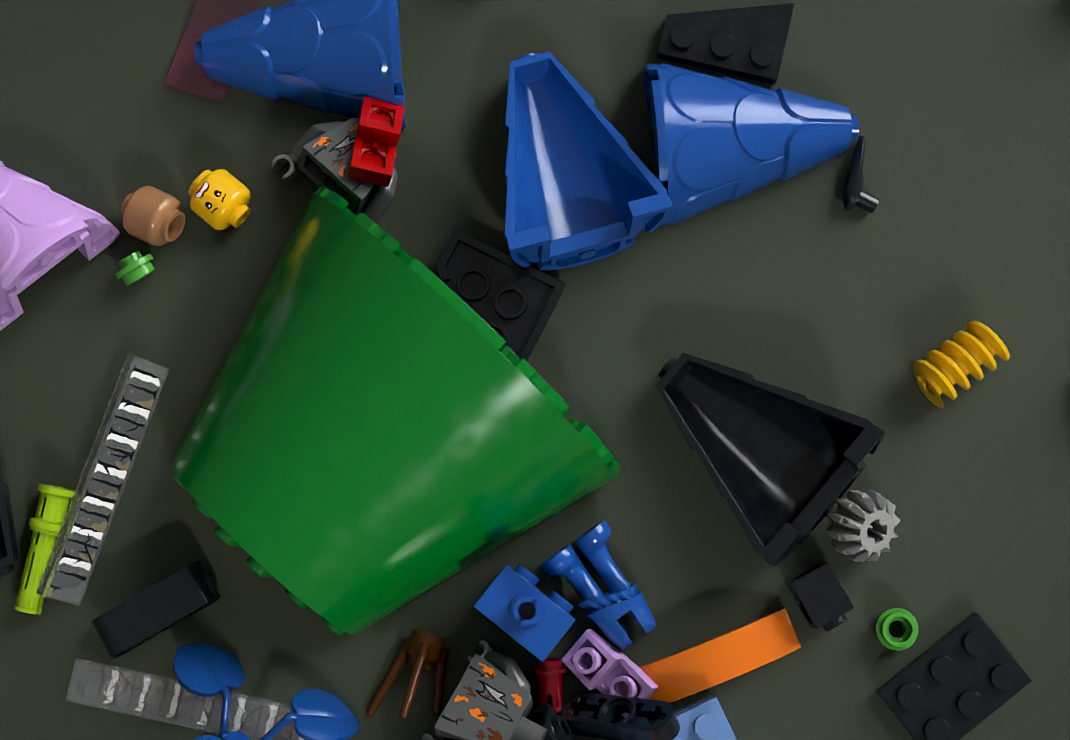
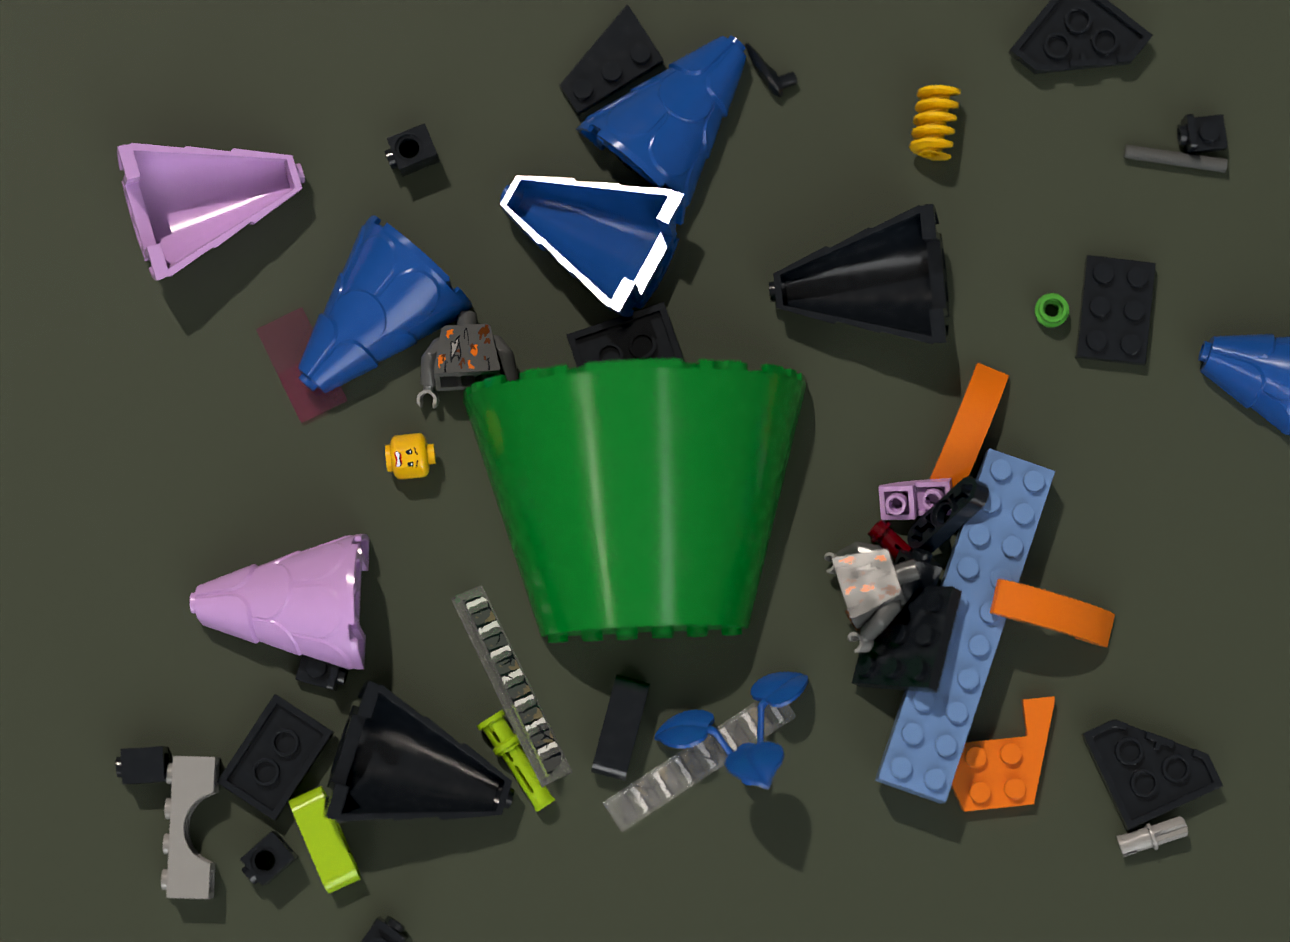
camera: 45 degrees left, 0 degrees up
(135, 267) = (400, 546): bright green plate -> none
(153, 216) = (380, 505): medium nougat head -> none
(376, 141) = (471, 329): red slope -> none
(423, 652) = (799, 594): reddish brown plant -> none
(525, 611) = (834, 509): blue brick -> none
(607, 606) = (874, 466): blue piece -> none
(820, 597) = (990, 335): black brick -> none
(863, 525) = (974, 269): light grey gear -> none

